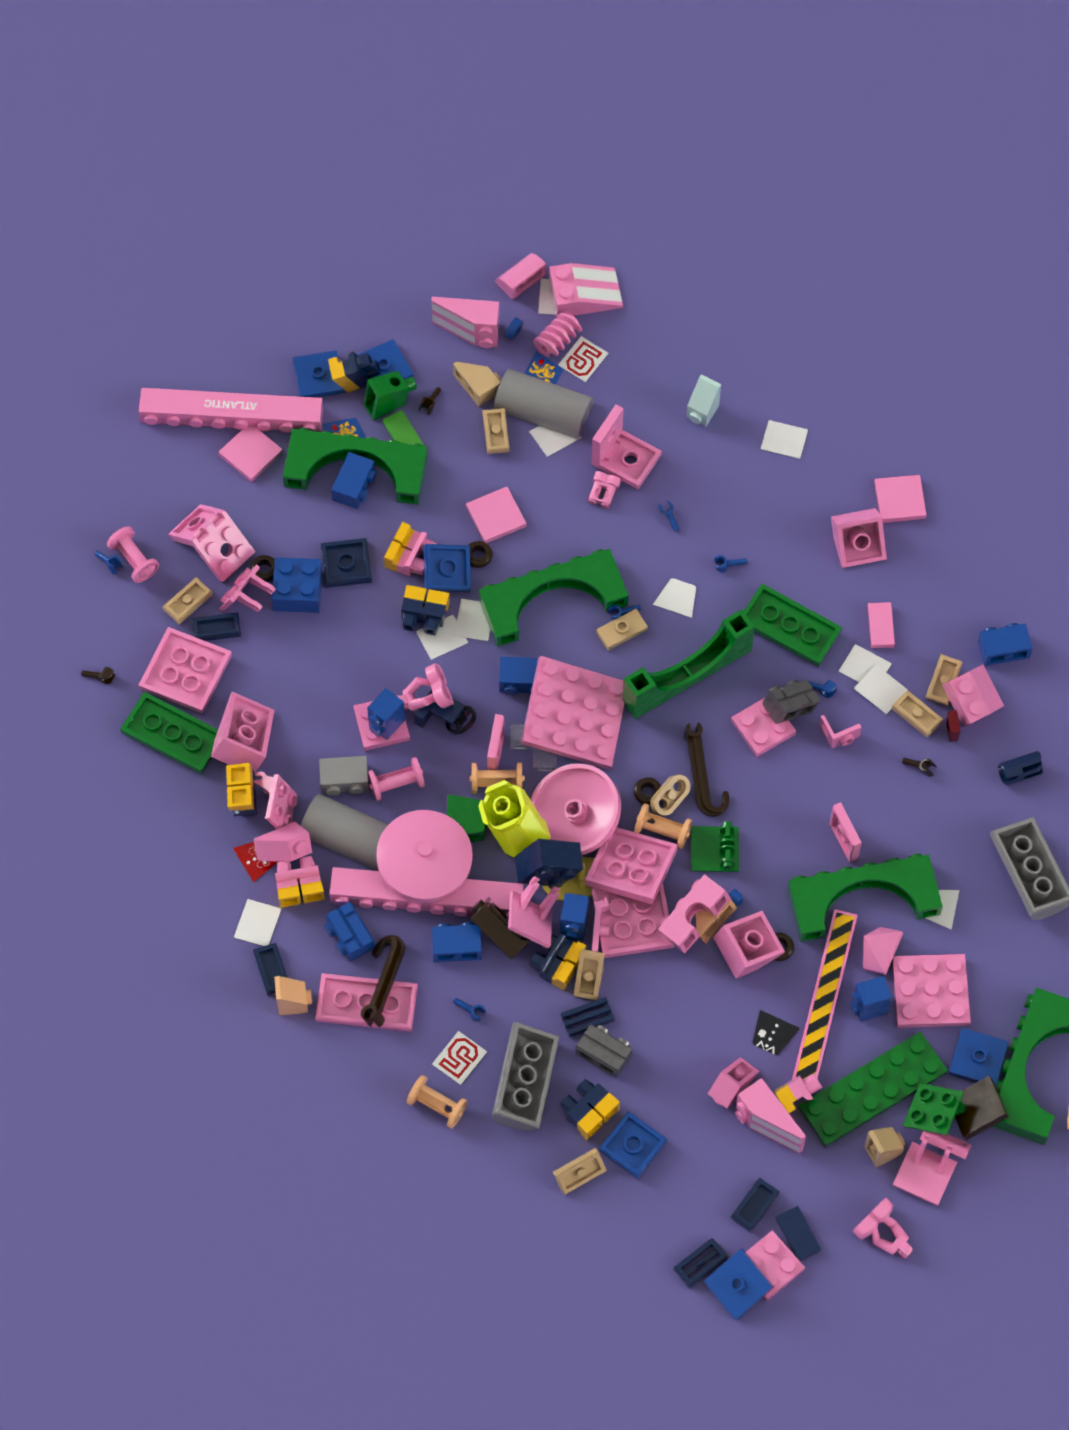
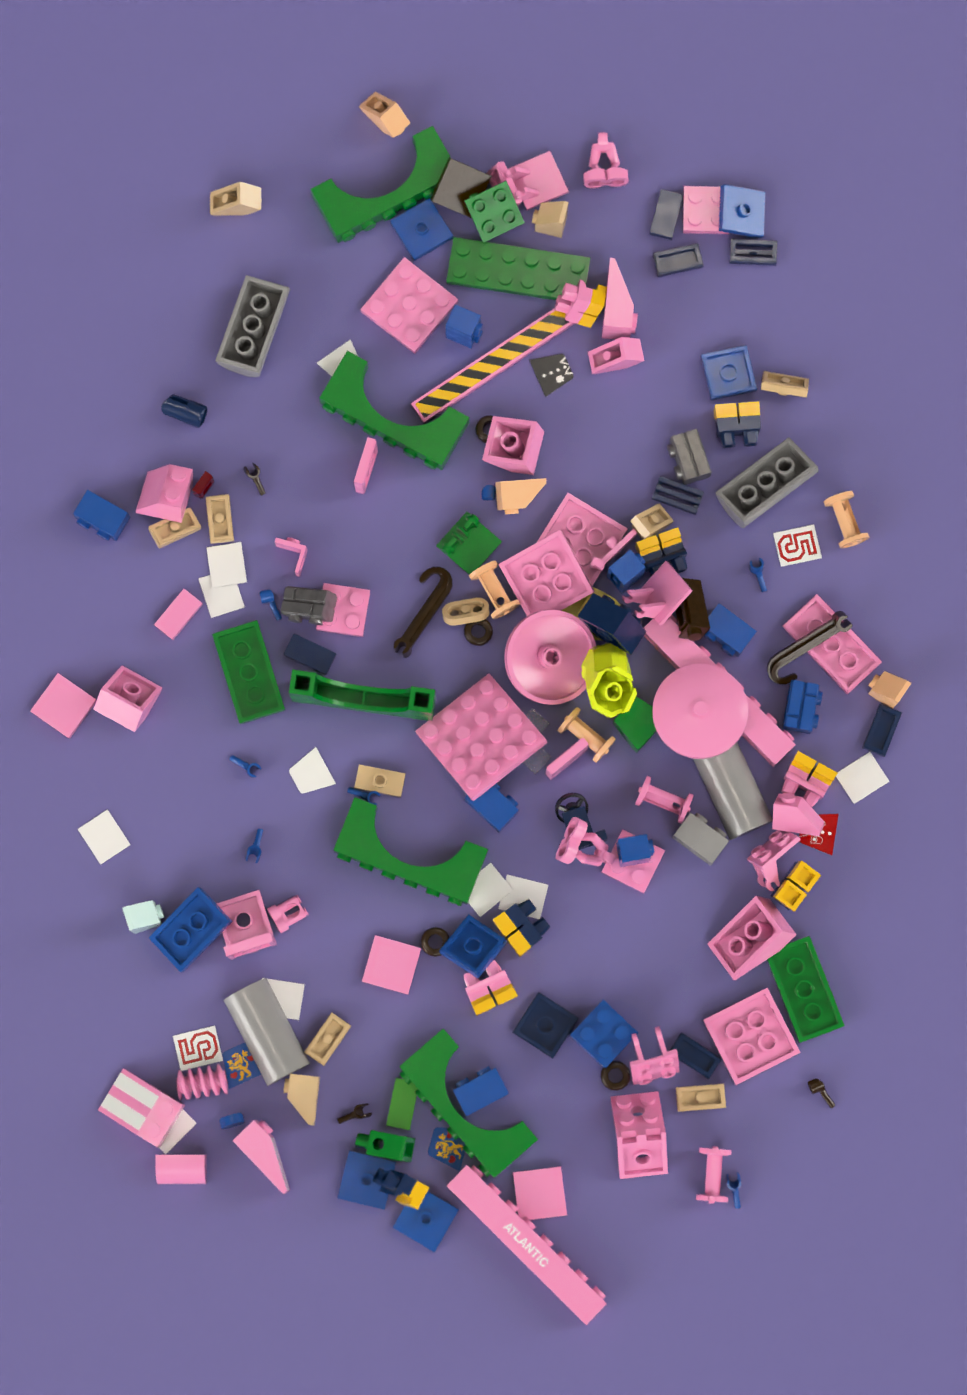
camera: 140 degrees left, 15 degrees up
(661, 421) = (190, 929): none -> blue plate
(704, 896) = (558, 493): bright pink arch -> none
(757, 675) = (310, 654): none -> dark blue tile
(880, 949) = (417, 363): bright pink slope -> none

